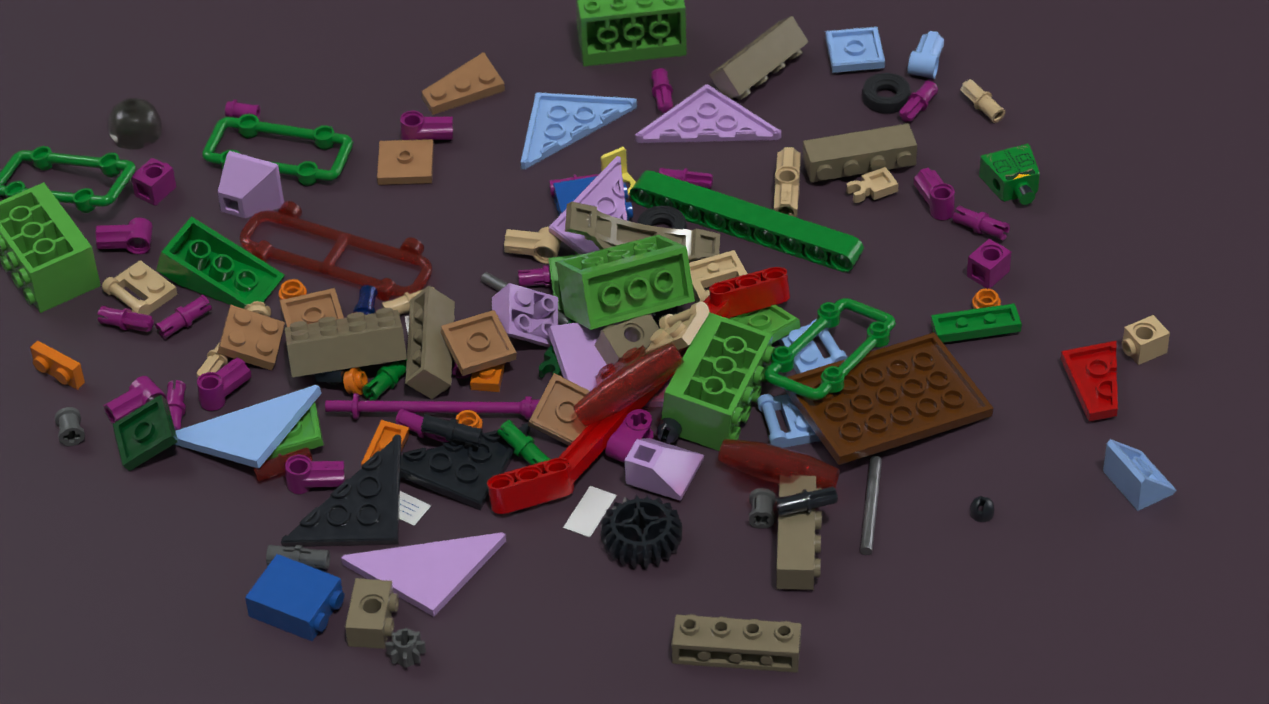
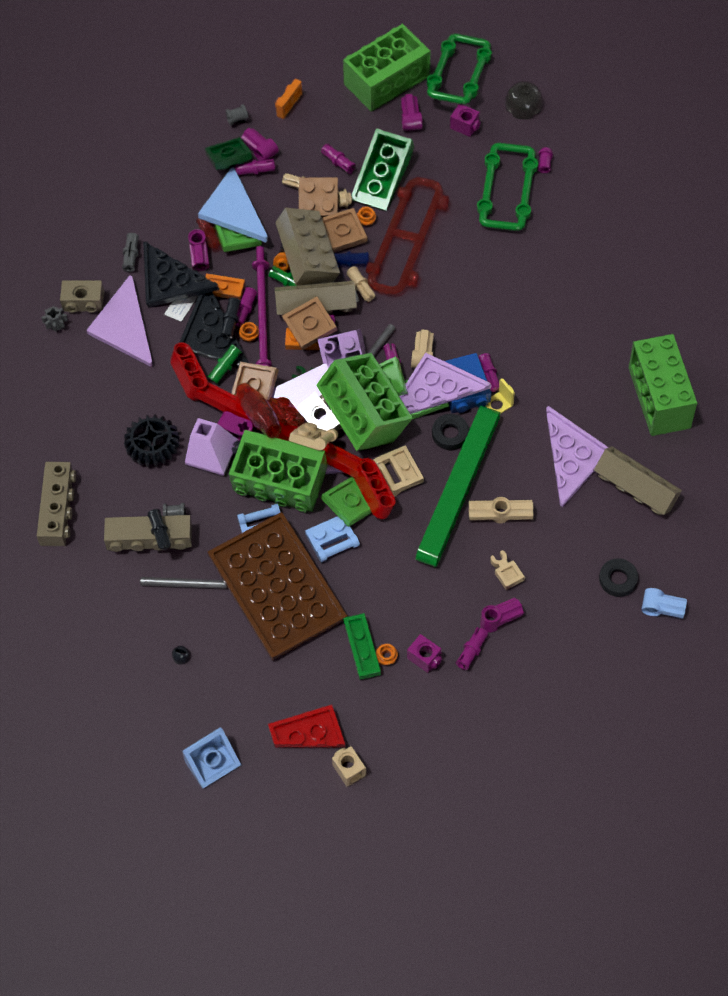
camera: 85 degrees right, 15 degrees up
(125, 319) = (334, 127): magenta axle -> none
(143, 282) = (364, 138): tan plate -> none
(215, 386) = (274, 187): magenta piece -> none
(249, 186) = (457, 171): lavender slope -> none
(295, 597) = (95, 254): blue brick -> none
(405, 162) = (505, 265): medium nougat plate -> none
(417, 127) = (537, 272): magenta piece -> none
(464, 85) = (592, 291): medium nougat wing -> none
(566, 118) = (560, 358): light blue tile -> none
(589, 511) = (178, 412): white sticker -> none
(611, 231) = (415, 398): dark tan piece -> none
(662, 90) = (600, 420): magenta axle -> none
(701, 179) = (503, 442): magenta axle -> none
(771, 462) = (204, 513): clear red plate -> none
(833, 377) = (331, 573): green bar -> none
(855, 49) = (666, 551): light blue plate -> none
(859, 152) = (536, 557): dark tan brick -> none
(918, 101) = (609, 600): magenta axle -> none
(983, 101) = (615, 648): tan axle -> none
(1011, 173) = (527, 670): green torso -> none

